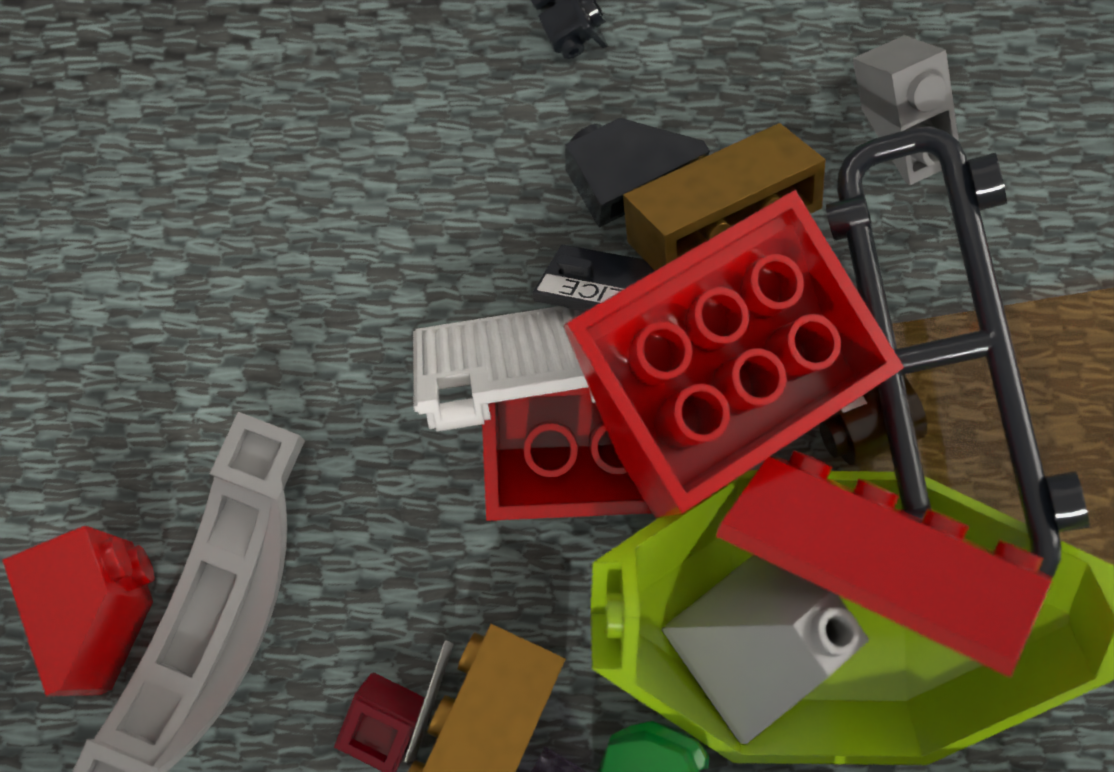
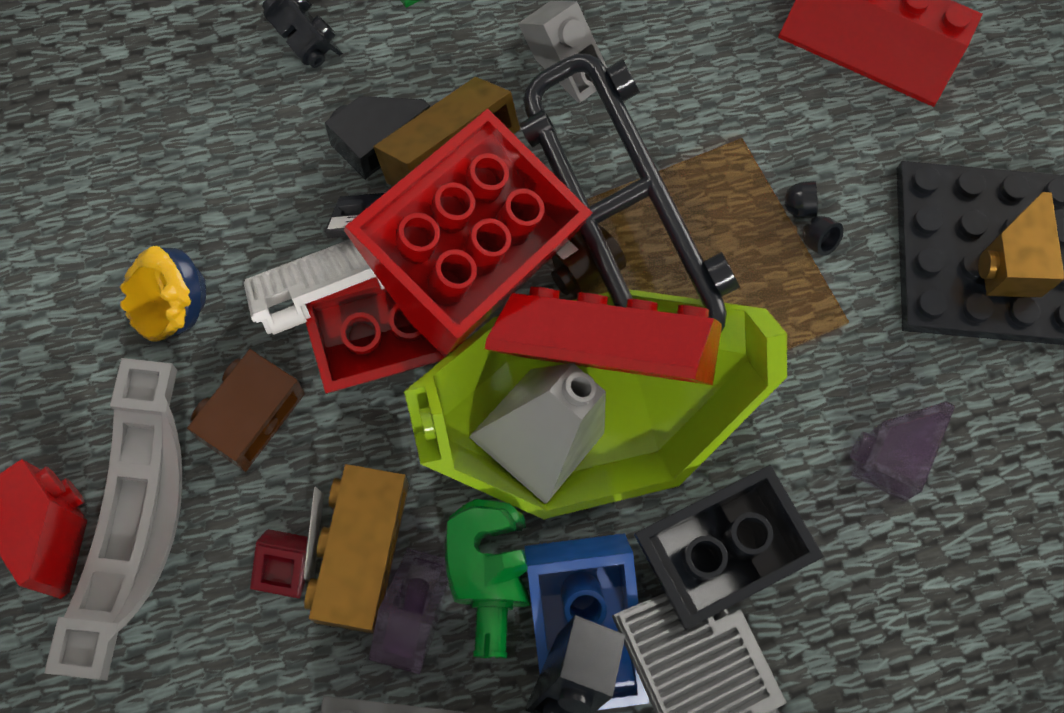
camera: 20 degrees left, 5 degrees down
(309, 329) = (163, 293): none -> yellow hair
(378, 510) = (245, 409): none -> reddish brown brick

